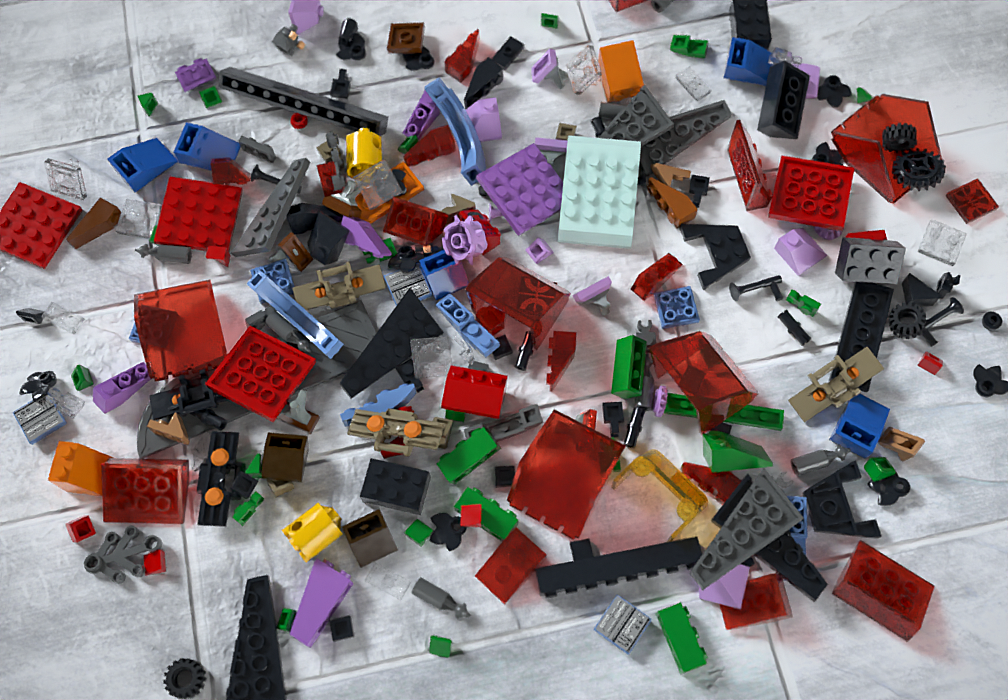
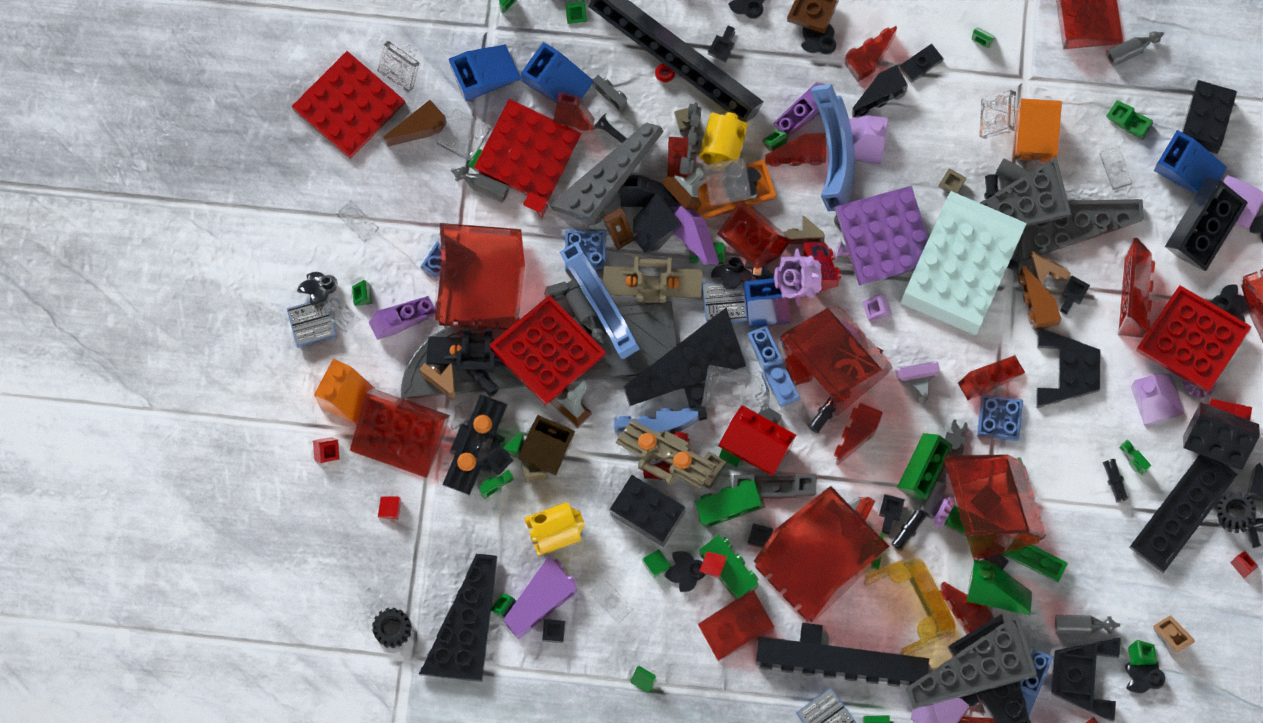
camera: 20 degrees right, 5 degrees up
(30, 315) = (326, 208): black slope -> none
(119, 554) = (359, 488): dark grey plant -> none
(369, 538) = (607, 553): dark brown slope -> none
(438, 598) = (655, 633): dark grey wheel -> none
(504, 348) = (804, 403): black plate -> none
(548, 67) = (959, 97): lavender piece -> none
(551, 148) = (928, 197): lavender piece -> none
(736, 291) = (1112, 423): black piece -> none
(780, 55) = (1225, 172): clear plate -> none
(838, 390) = (1132, 561): dark tan piece -> none
(860, 425) = (1141, 602): blue slope -> none

